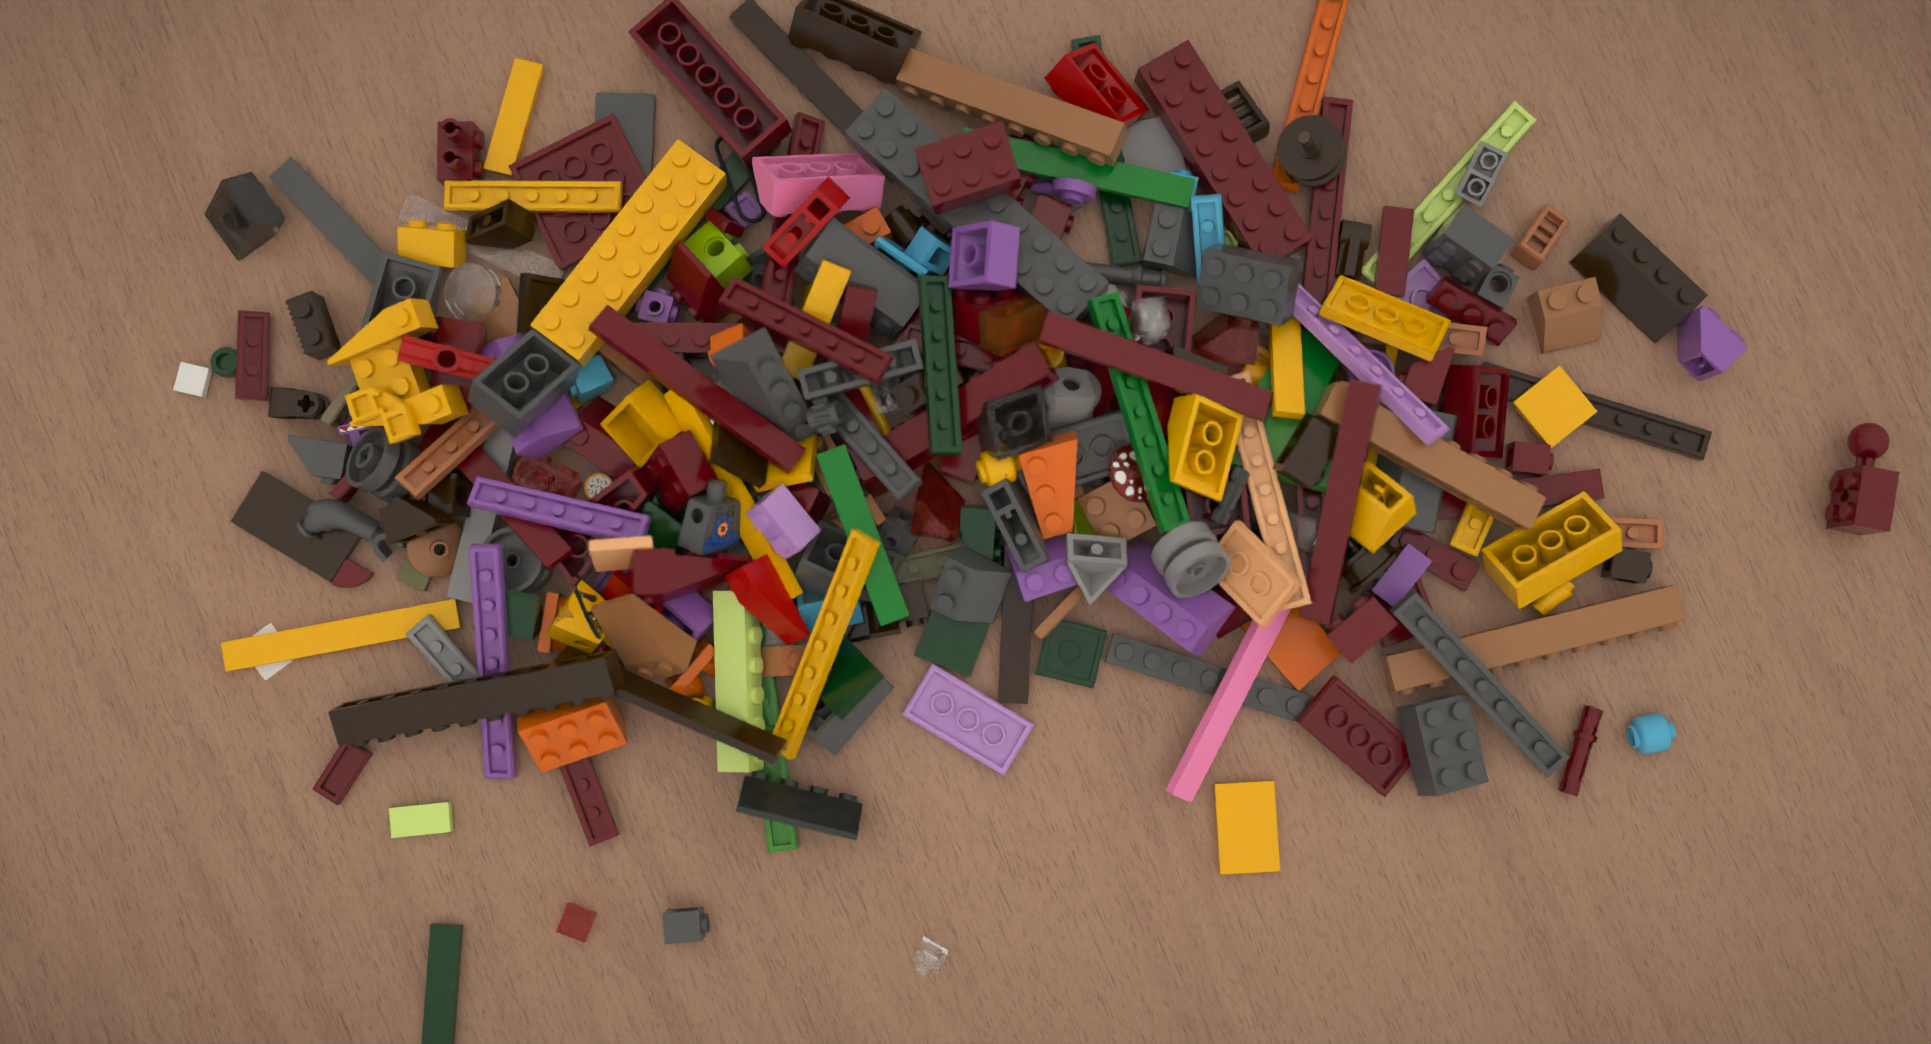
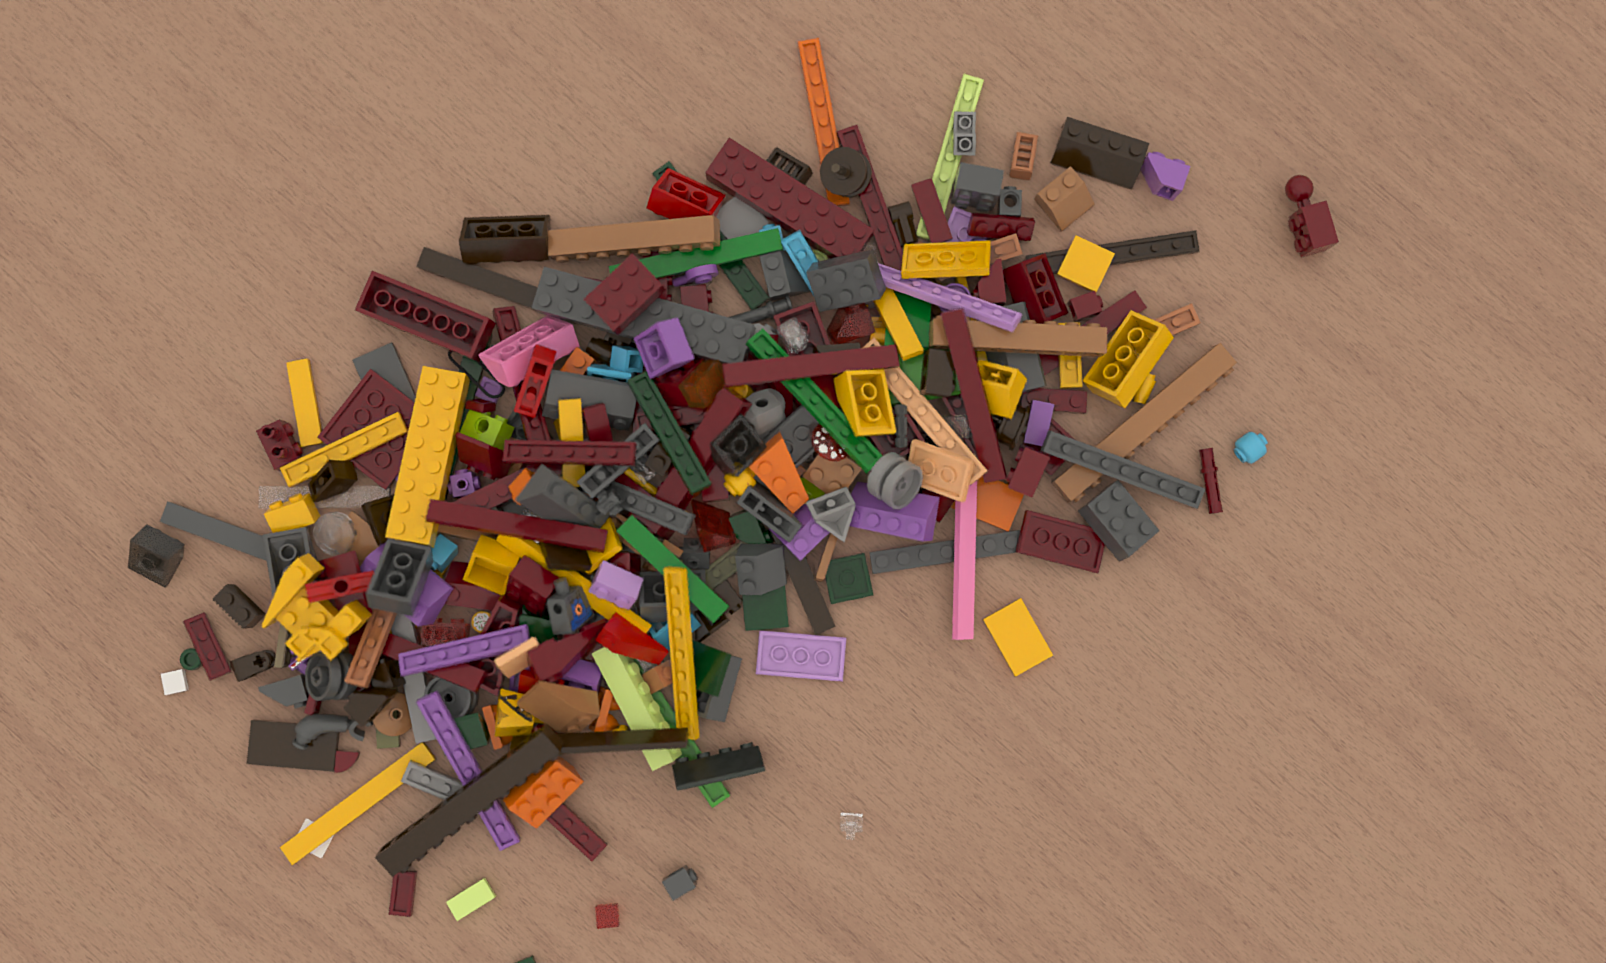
camera: 25 degrees left, 0 degrees up
(1628, 567) = (1183, 345): dark brown brick -> none

